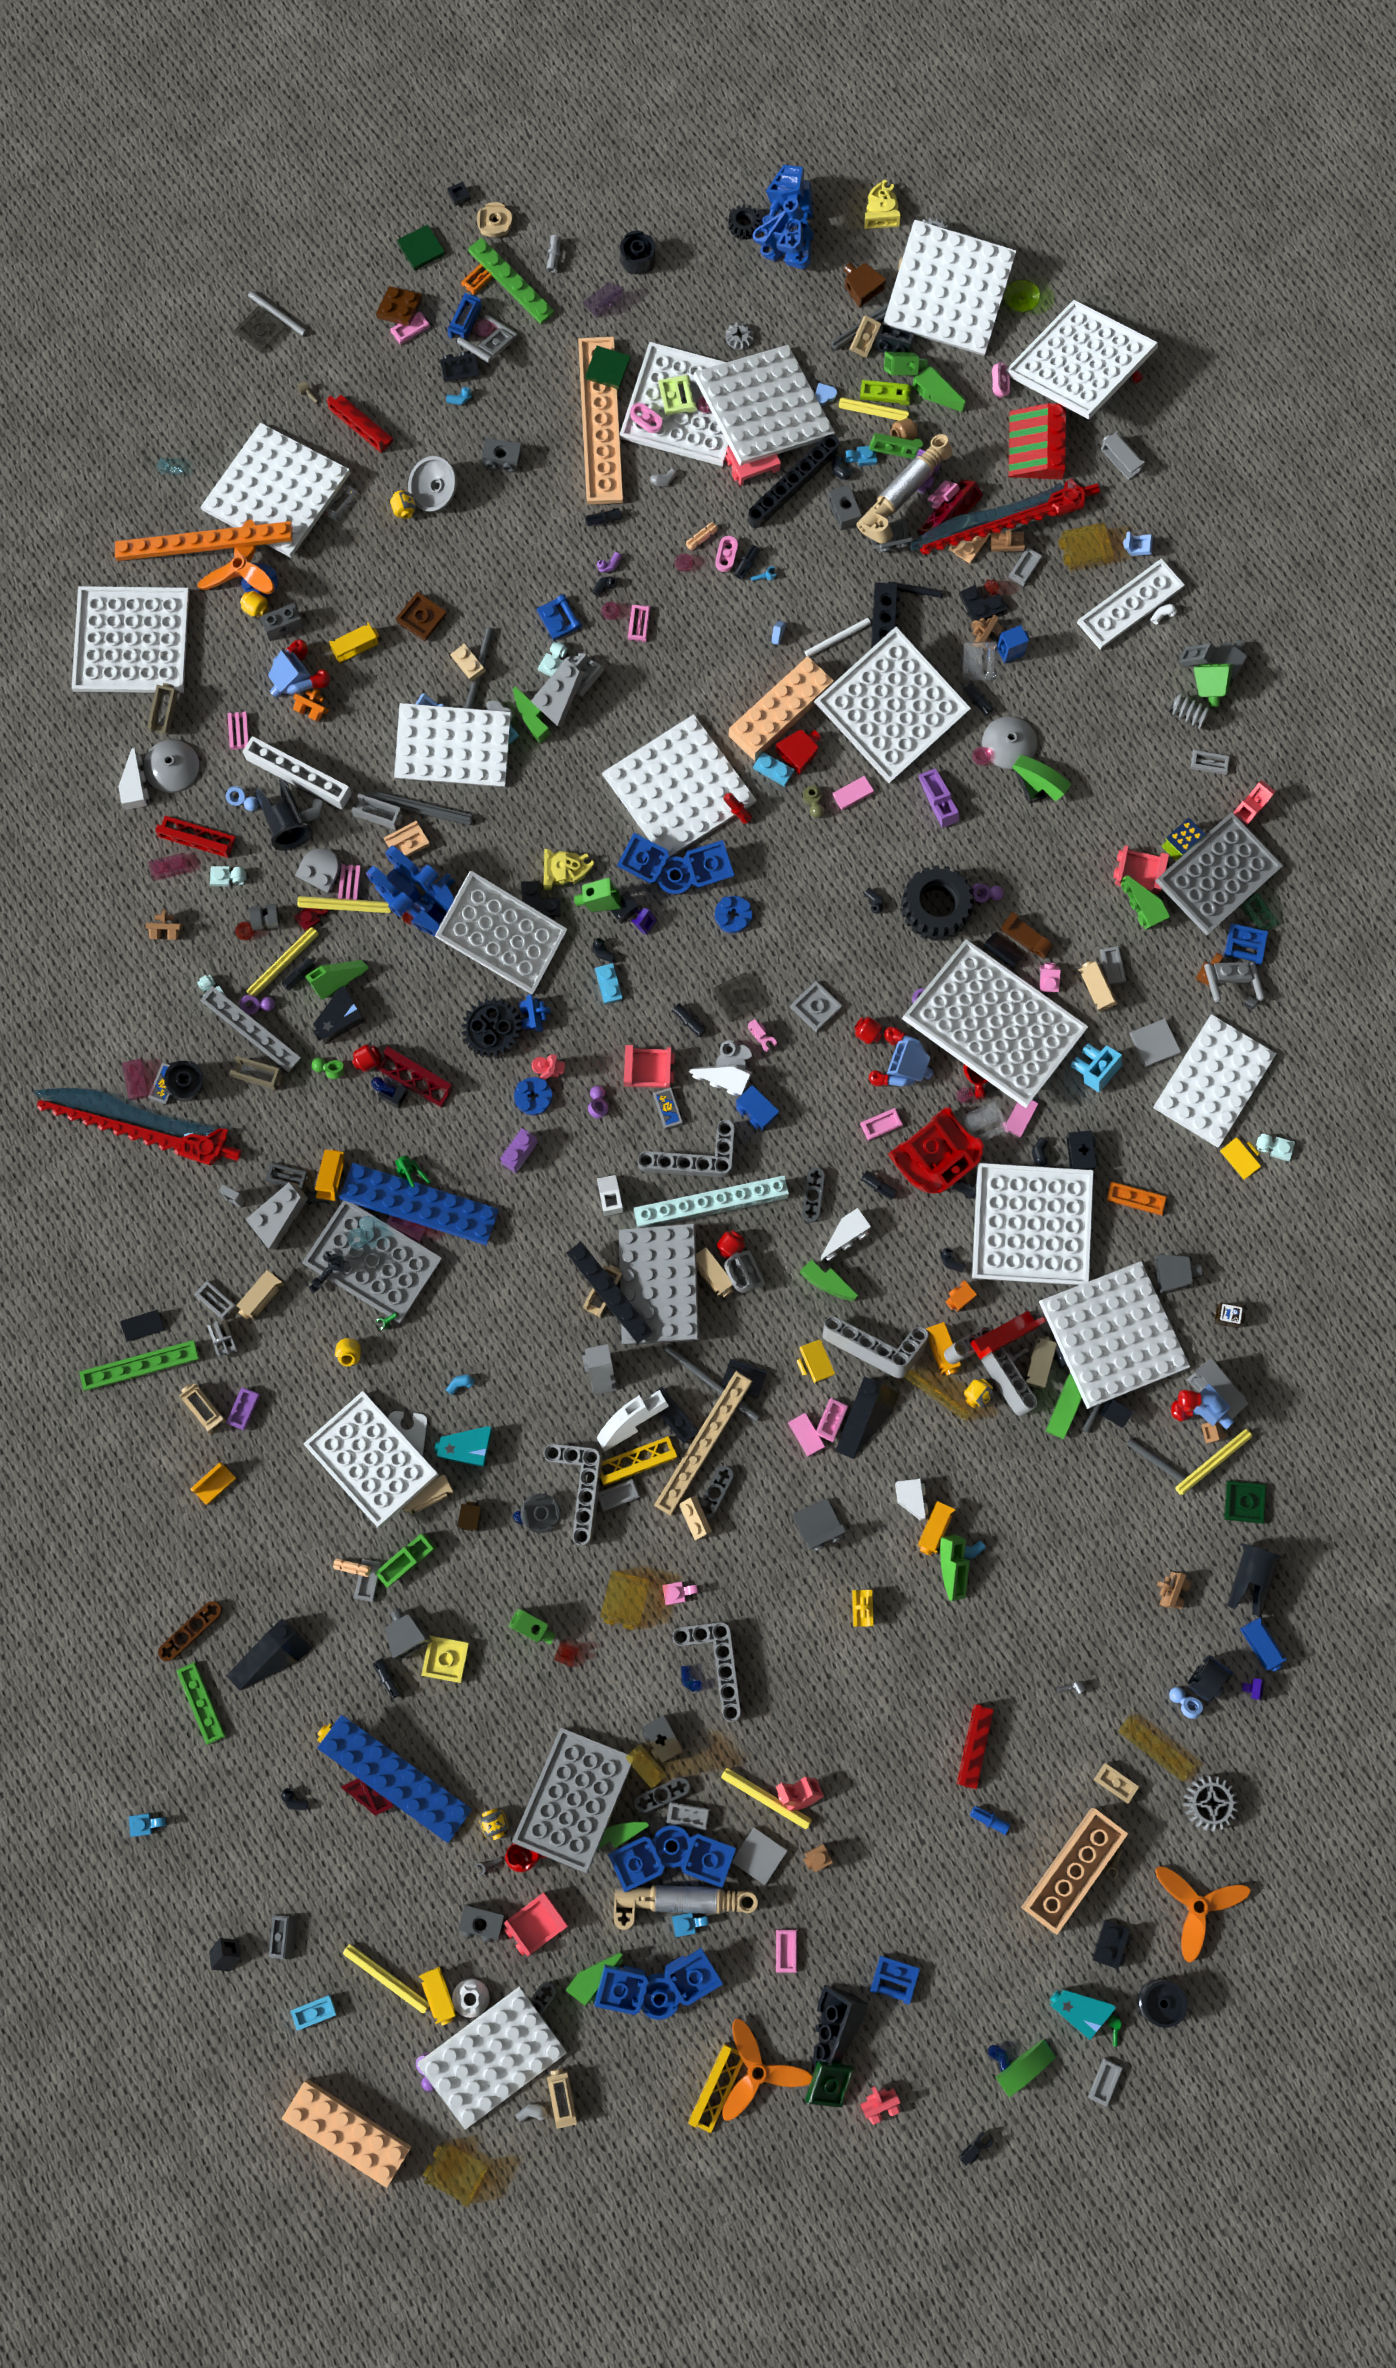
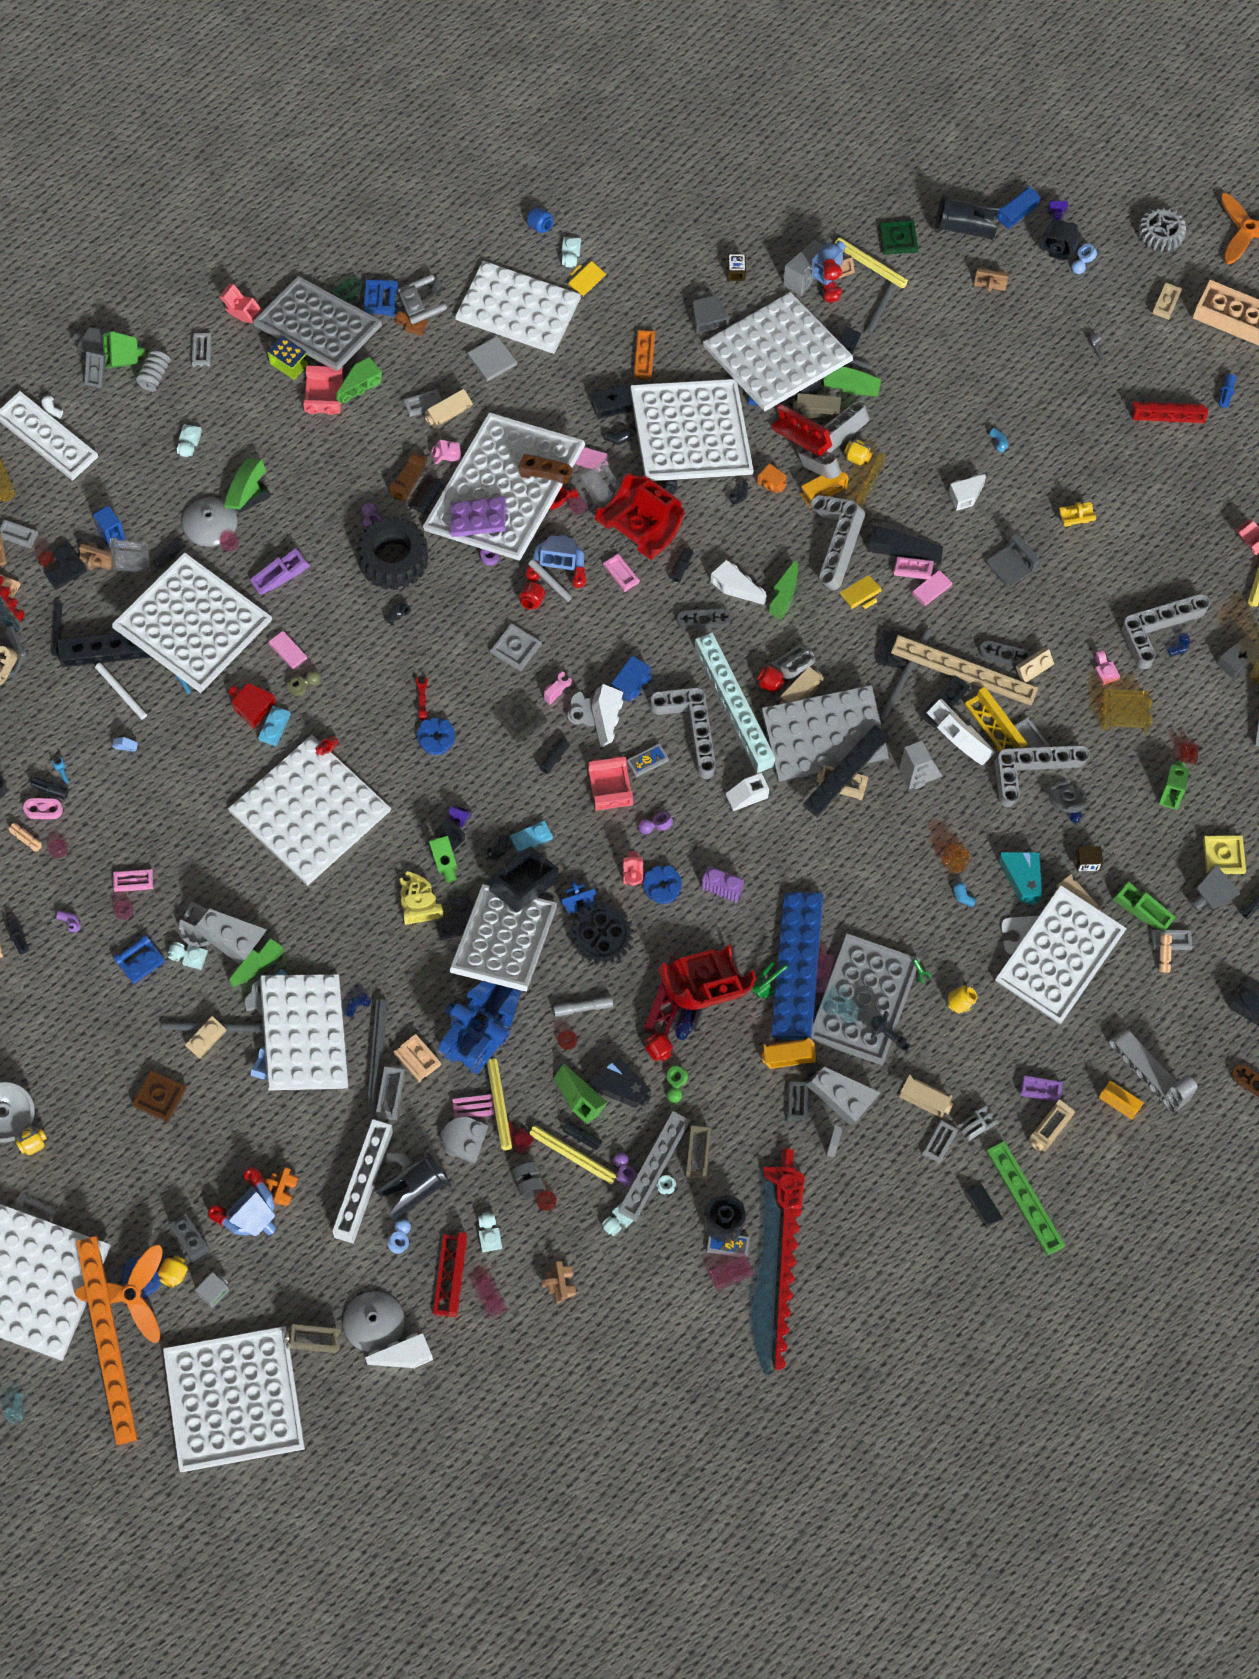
camera: 100 degrees left, 10 degrees down
(204, 1534) = (1170, 1092): none -> light grey beam
(230, 635) = (212, 1289): none -> light grey brick
(233, 1044) = (671, 1184): none -> light aqua plate
(237, 716) = (315, 1260): bright pink tile -> none
(354, 643) = (201, 1157): yellow window -> none
(394, 978) = (567, 1040): none -> clear red plate
(416, 1110) = (705, 979): none -> red piece
(425, 986) = (570, 1008): none -> light grey piece
(474, 798) = (355, 1002): none -> clear blue arm
(500, 1389) = (955, 863): none -> clear orange brick
(557, 964) = (522, 880): none -> black piece
(604, 583) = (93, 921): black arm -> none
(697, 868) = (396, 772): blue plate -> none
(760, 906) = (422, 699): none -> red piece
(780, 708) = (209, 726): light nougat brick -> none
(874, 1054) = (550, 580): none -> light grey bar
(935, 1528) = (994, 469): light orange window -> none
(954, 1566) = (1019, 447): bright green slope -> none
(960, 988) = (478, 516): none -> medium lavender plate
(998, 1057) = (544, 468): none -> reddish brown leg
(1102, 1069) = (527, 392): medium azure brick -> none
(1109, 736) = (189, 436): none -> light aqua plate
(1156, 1748) = (1128, 277): clear yellow tile -> none
(1318, 1120) = (540, 220): none -> blue head

